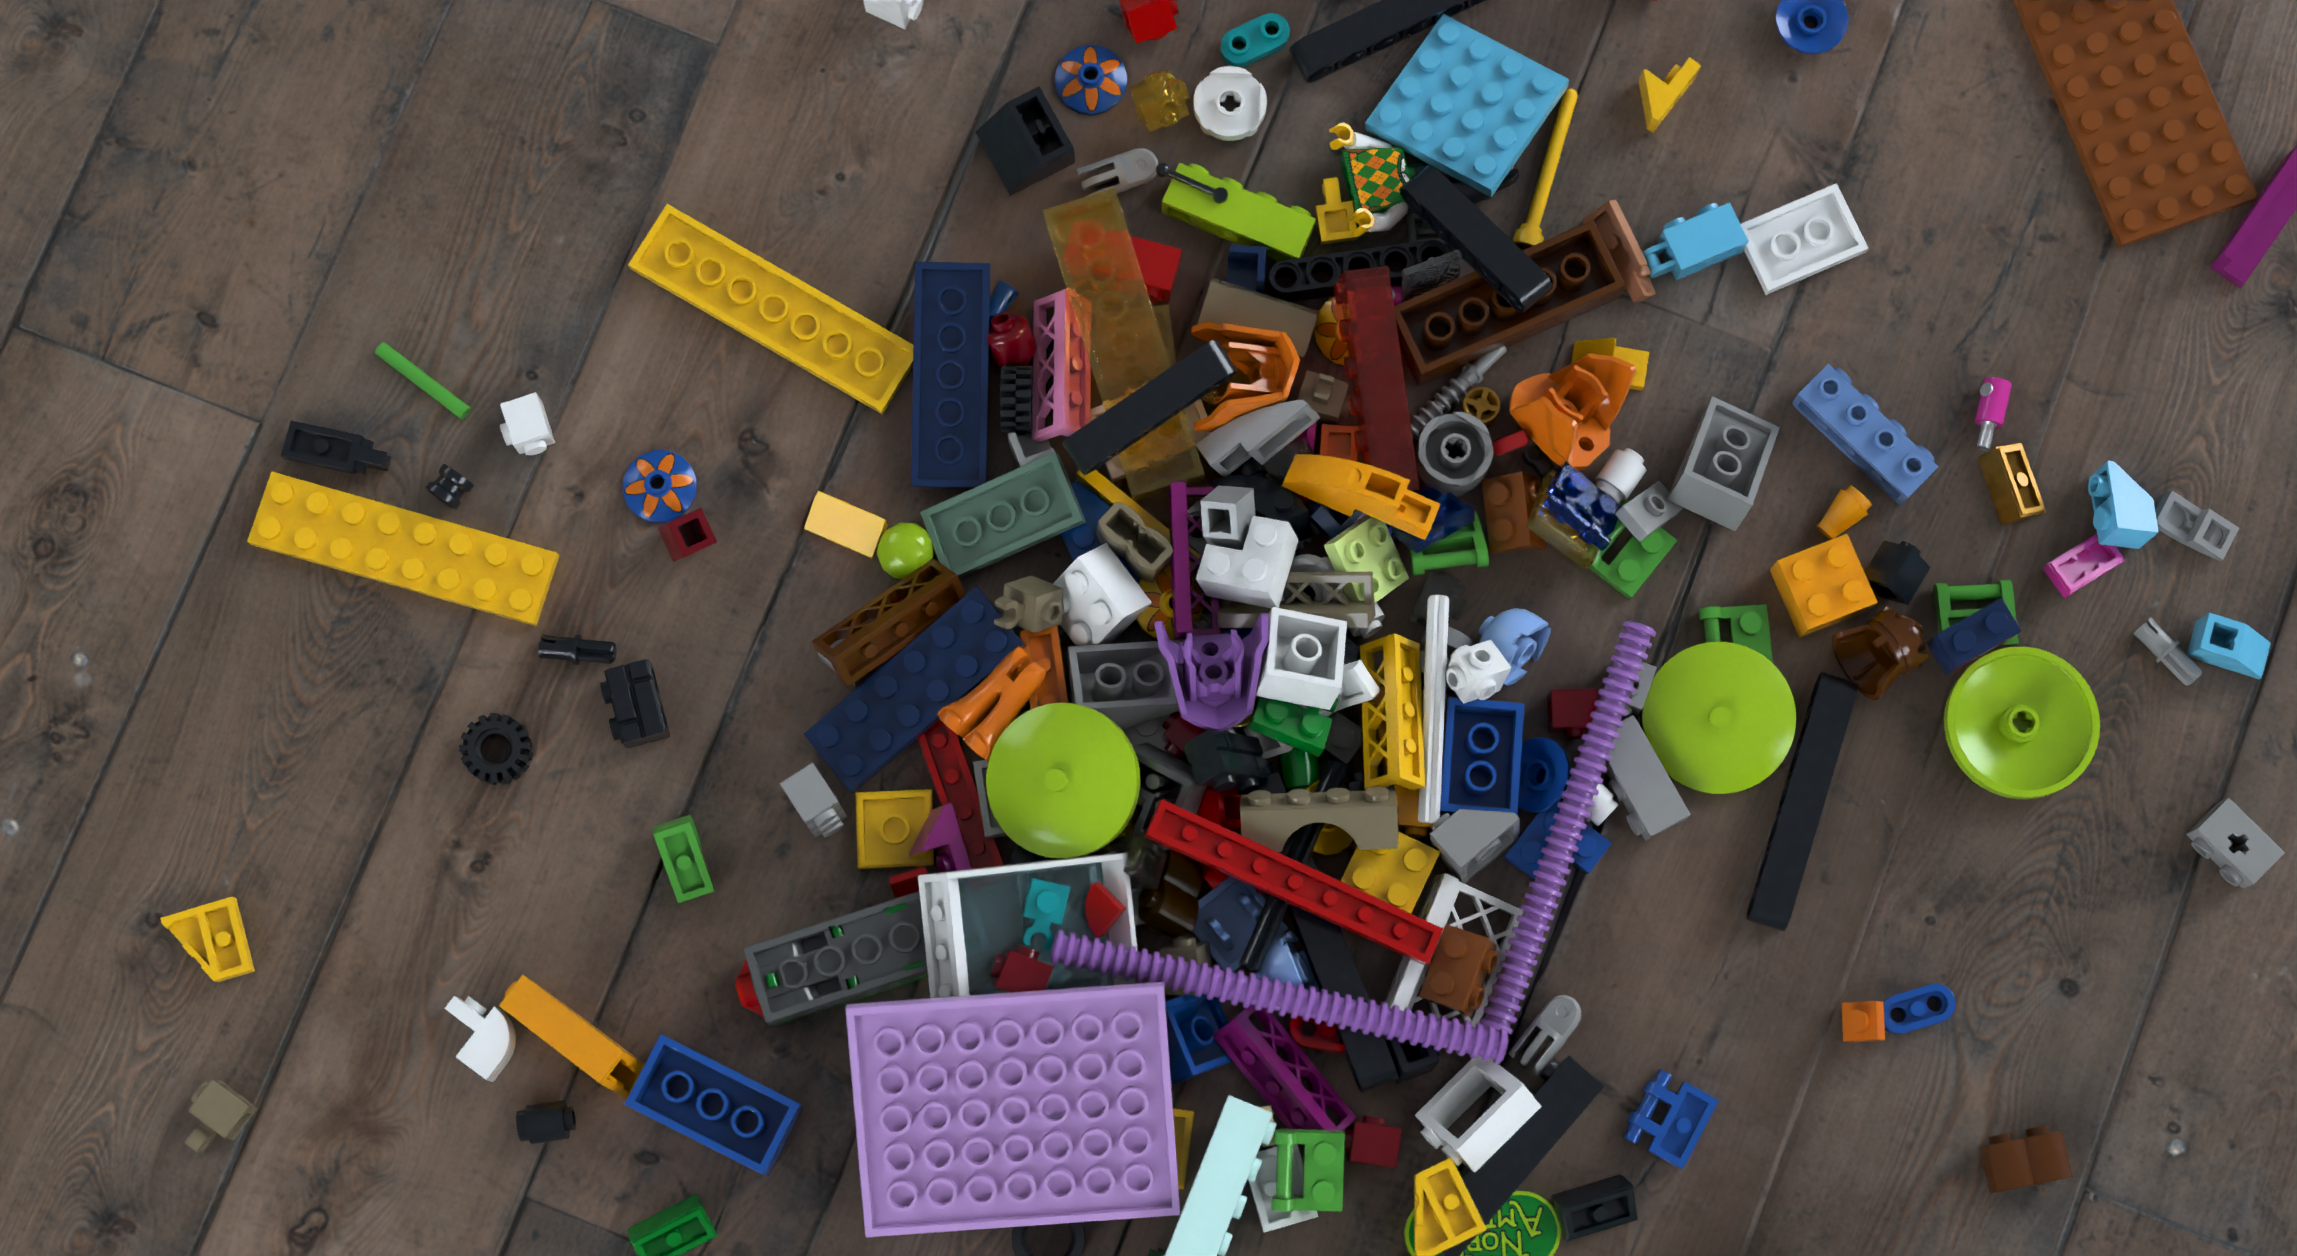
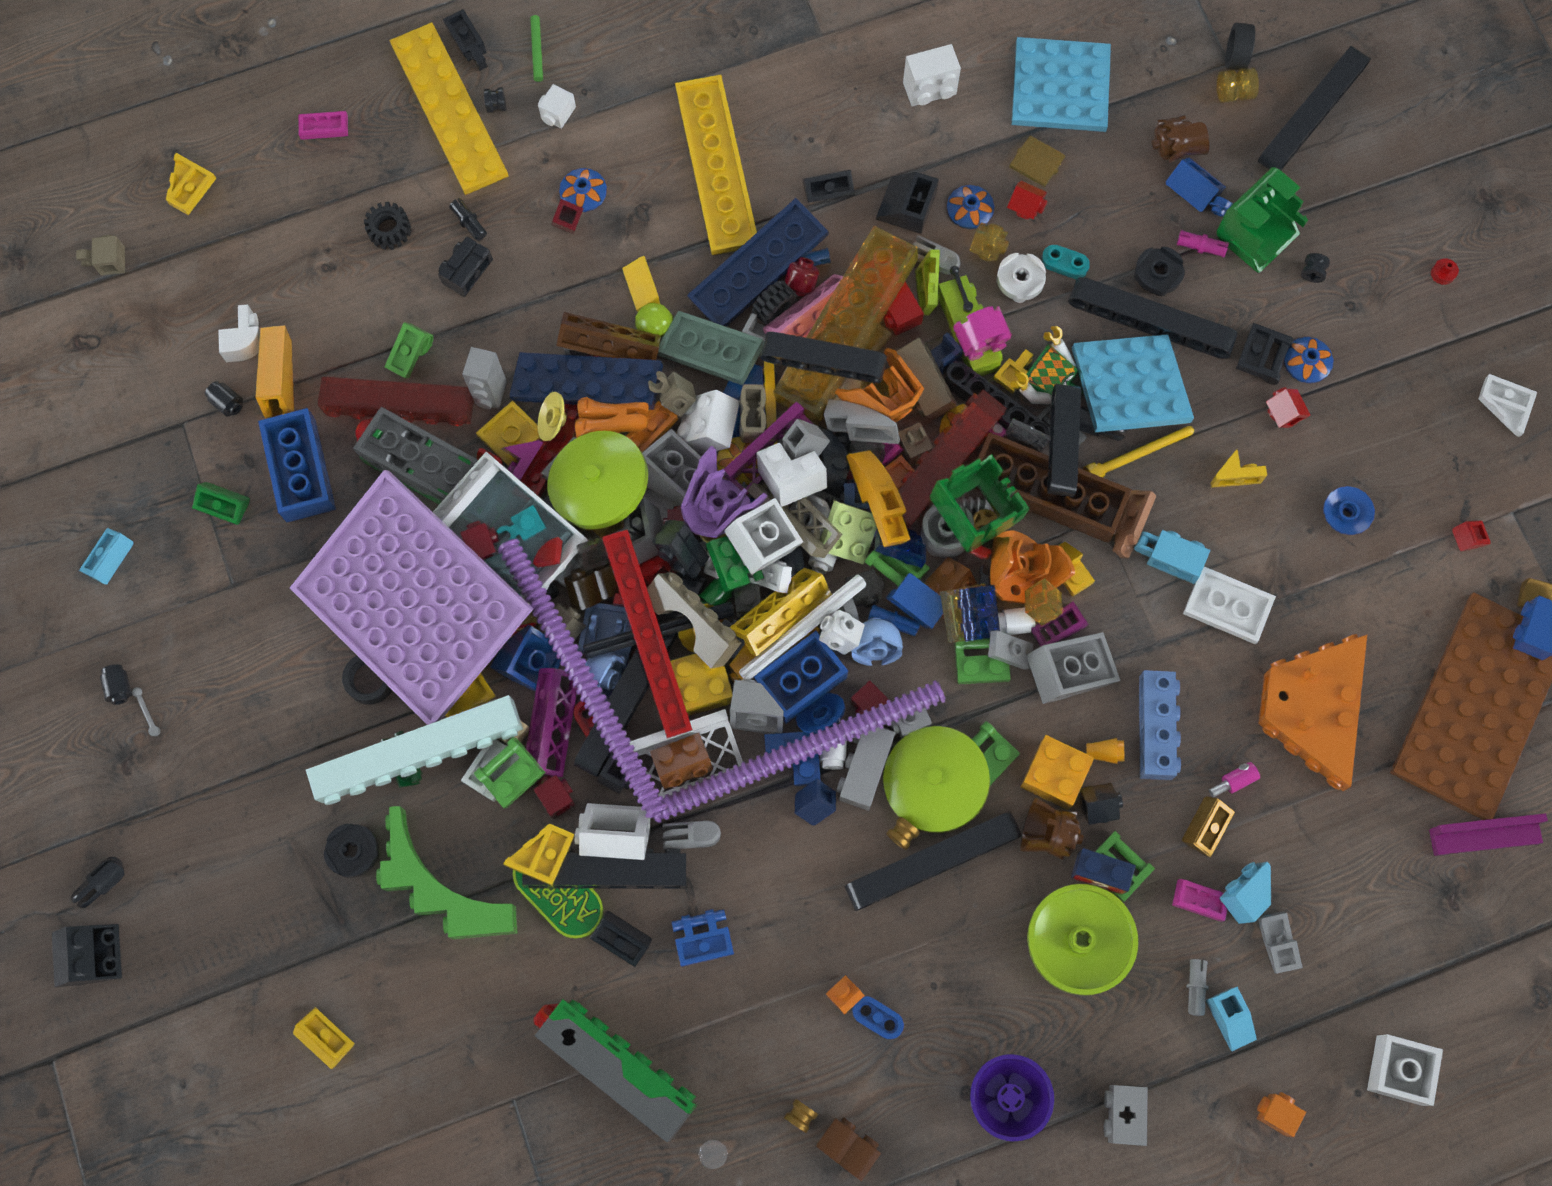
camera: 50 degrees right, 5 degrees down
(287, 714) = (323, 125): none -> dark pink plate
(735, 924) = (407, 400): none -> clear red brick
(918, 209) = (828, 186): none -> black slope
(926, 766) = (551, 416): none -> light yellow dish
(1147, 210) = (927, 281): none -> lime wing
(1273, 210) = (983, 331): none -> dark pink brick
(1501, 601) = (902, 623): none -> blue axle
(1503, 371) = (985, 477): none -> green piece
(1509, 559) = (917, 601): none -> blue panel
(1629, 868) = (815, 802): none -> dark blue panel
(1630, 428) = (1043, 602): none -> clear yellow brick
(1672, 405) = (1070, 608): none -> magenta slope
(1745, 805) = (903, 833): none -> pearl gold wheel
(1949, 1180) = (800, 1116): none -> pearl gold wheel
(1995, 248) = (1320, 709): none -> orange piece
(2138, 930) = (1027, 1094): none -> dark purple piece

